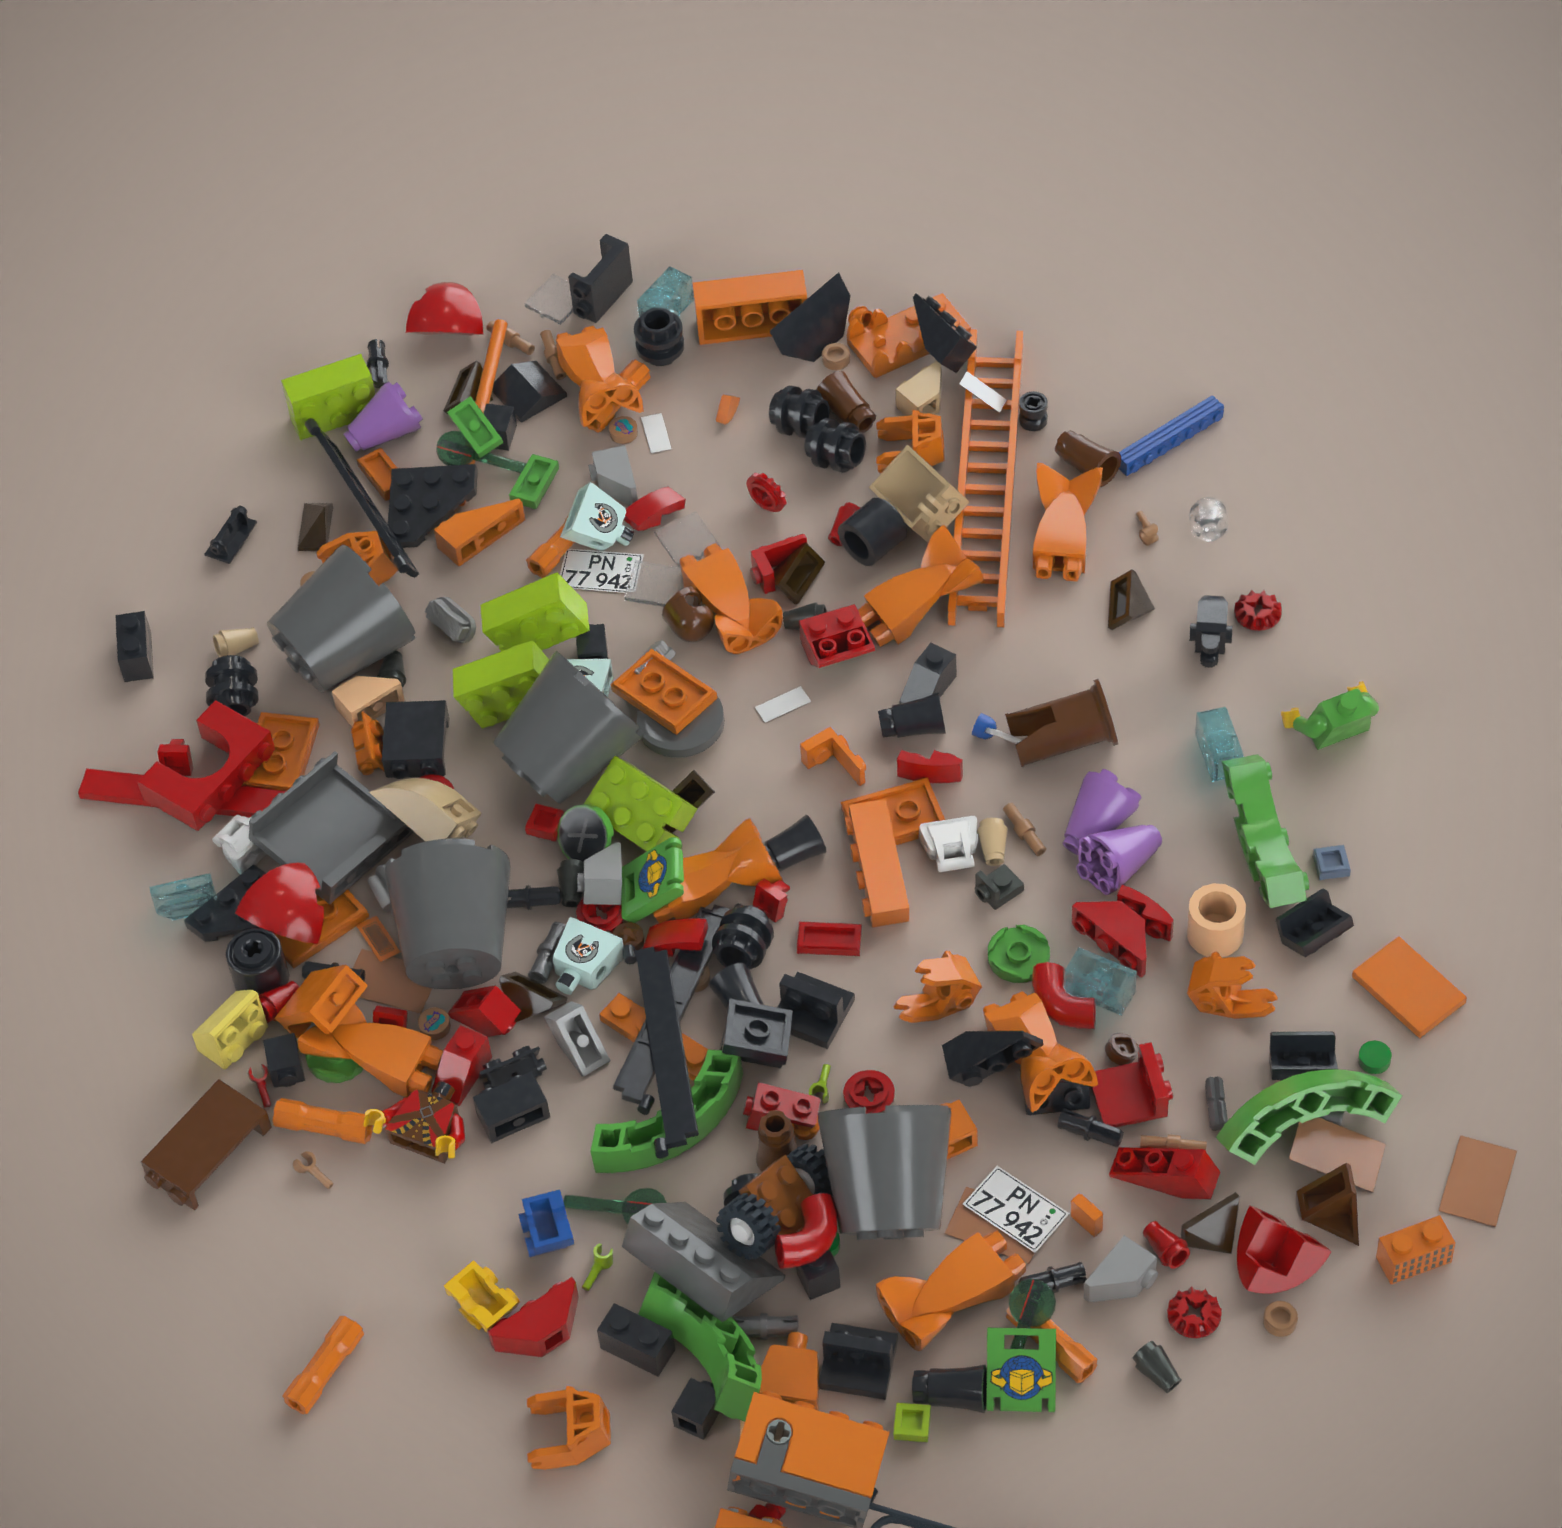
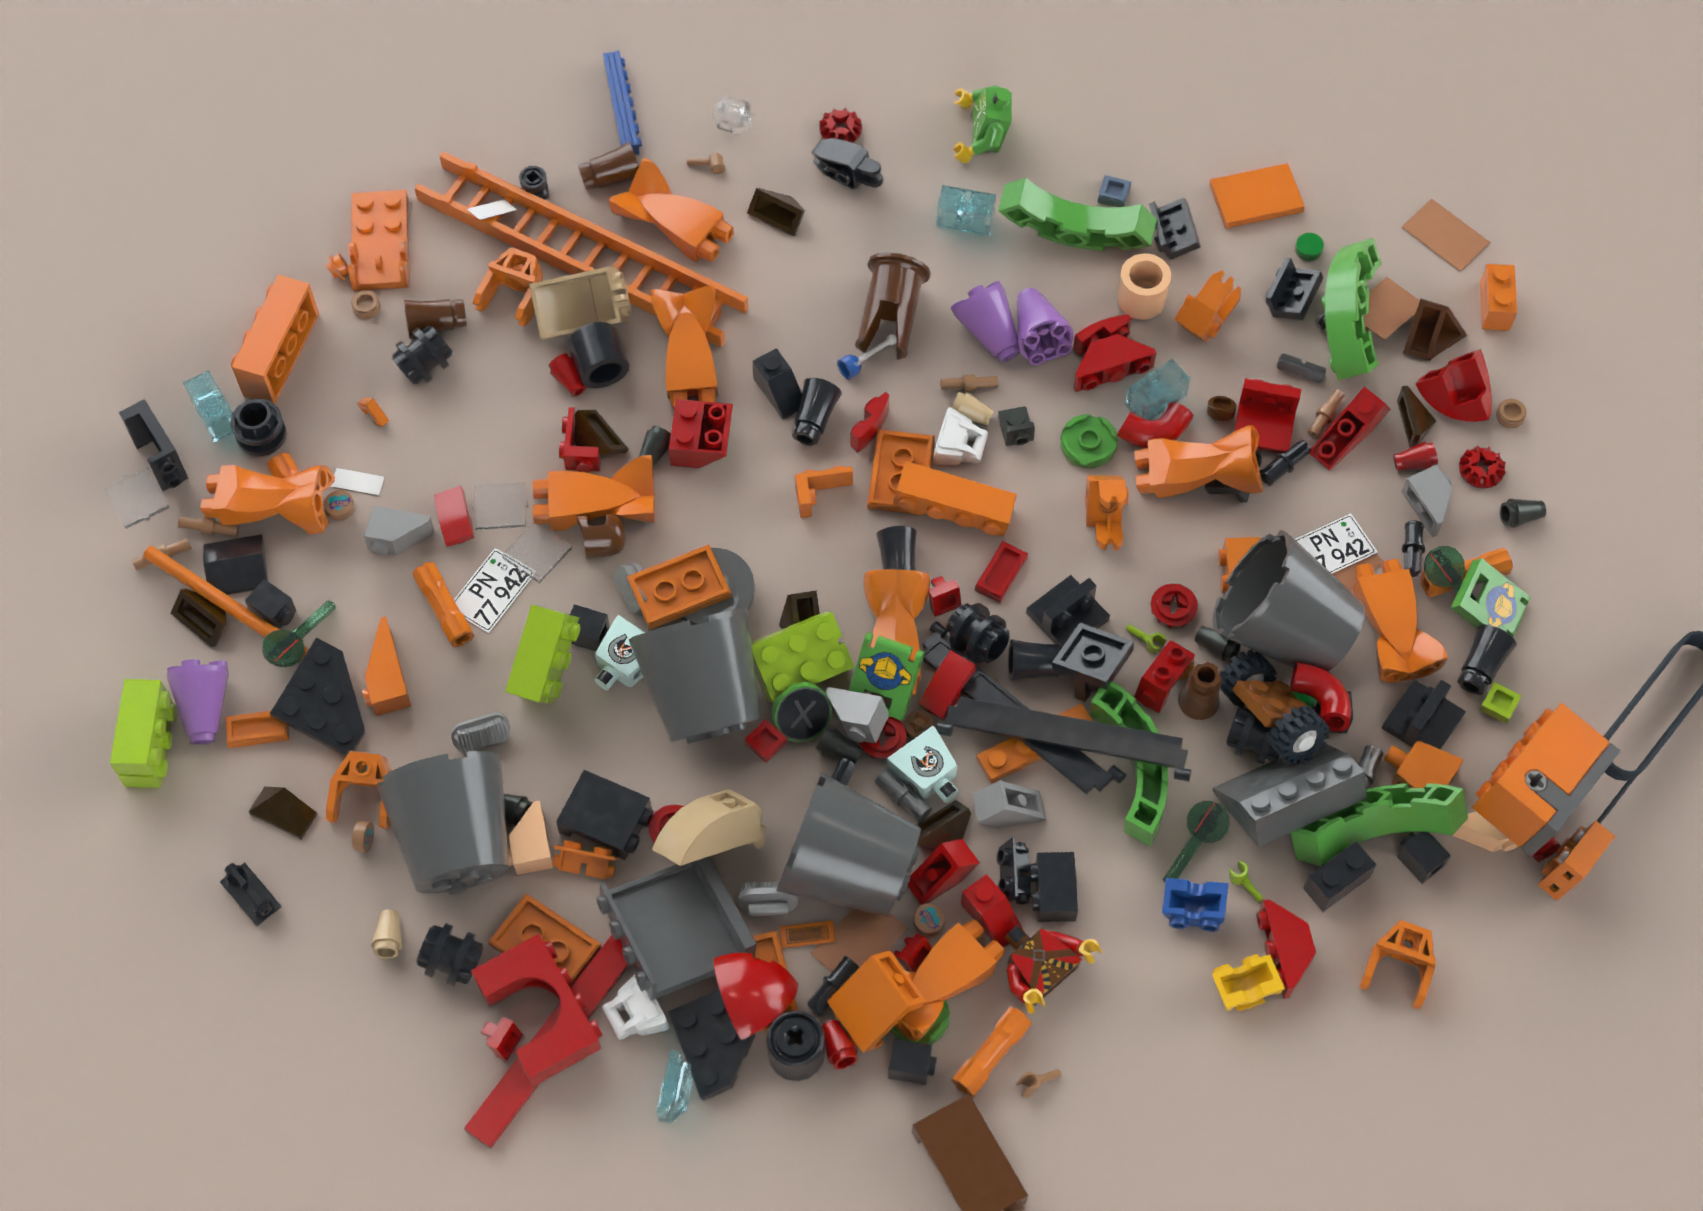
camera: 70 degrees left, 10 degrees up
(134, 646) = (340, 1029): black brick -> none
(231, 1028) = (853, 1094): light yellow slope -> none
(261, 1085) = (917, 1091): red hand -> none
(309, 1384) = (1264, 1161): orange axle -> none
(377, 363) = (106, 677): black axle -> none
(401, 559) = (177, 762): black piece -> none
(445, 309) = (98, 592): red brick -> none
(475, 427) = (274, 618): bright green plate -> none
(498, 682) = (607, 707): lime piece -> none
(534, 480) = (356, 601): bright green plate -> none
(596, 520) = (446, 563): light aqua torso -> none
(766, 492) = (499, 418): red gear -> none
(782, 704) = (731, 506): white sticker -> none
(814, 322) = (330, 298): black sticker -> none
(835, 445) = (479, 343): black piece -> none
(921, 391) = (461, 254): tan slope -> none
(941, 338) = (419, 209): black slope -> none
(981, 1053) = (1189, 502): black slope -> none
(1087, 1214) = (1367, 498): orange tile -> none

